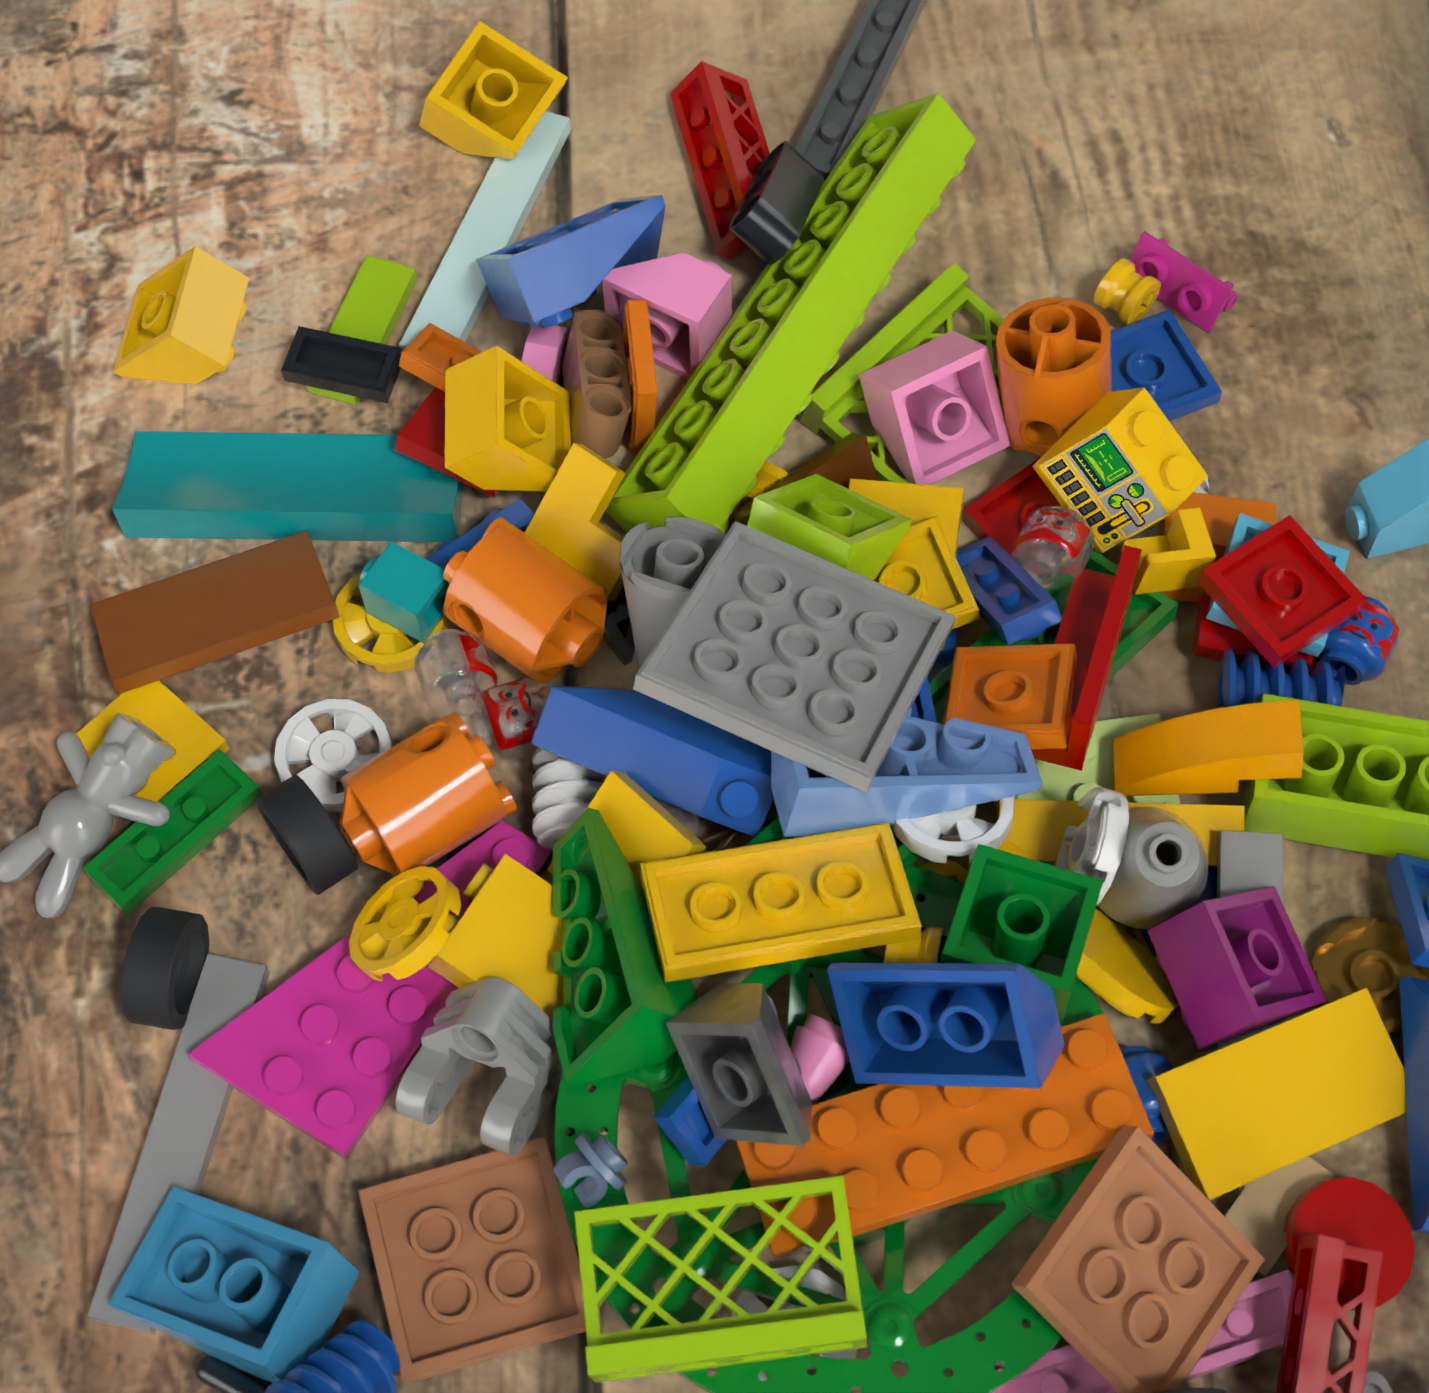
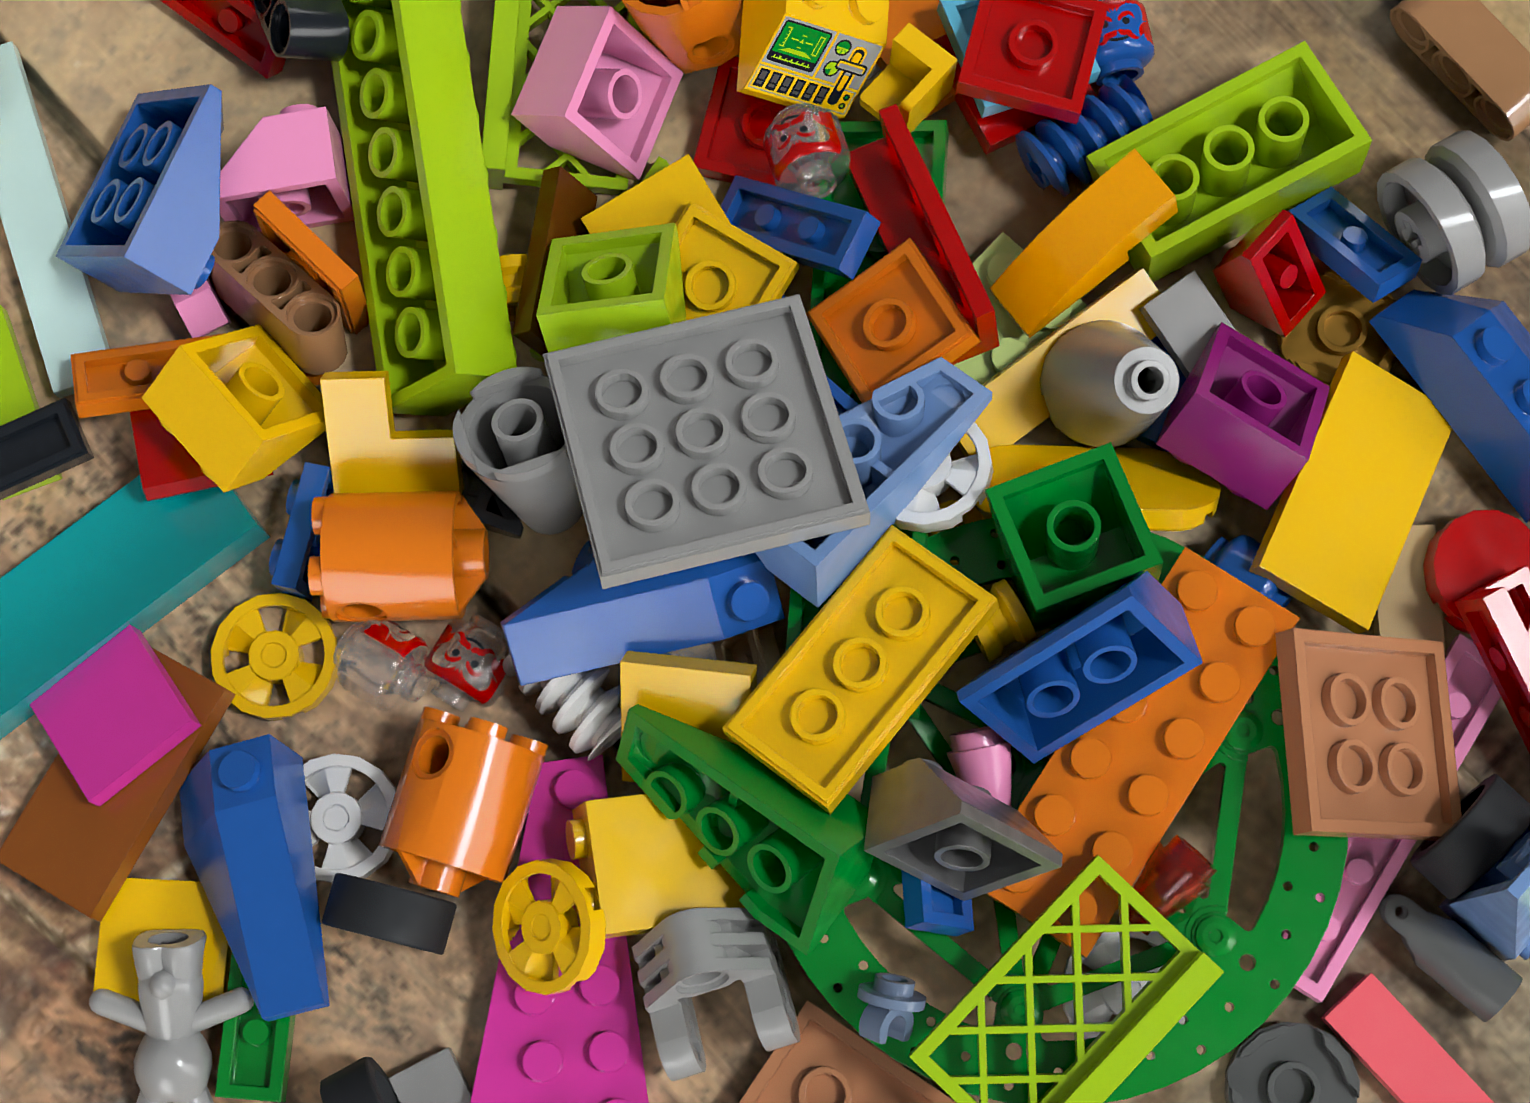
camera: 35 degrees left, 15 degrees up
(248, 568) = (115, 715): none -> dark pink tile
(251, 736) = (256, 864): none -> blue wedge
(404, 591) = (277, 628): teal brick -> none
(889, 1251) = (1172, 878): none -> clear red cone
(1100, 840) = (1063, 416): white piece -> none
(1344, 882) = (1271, 275): none -> red slope

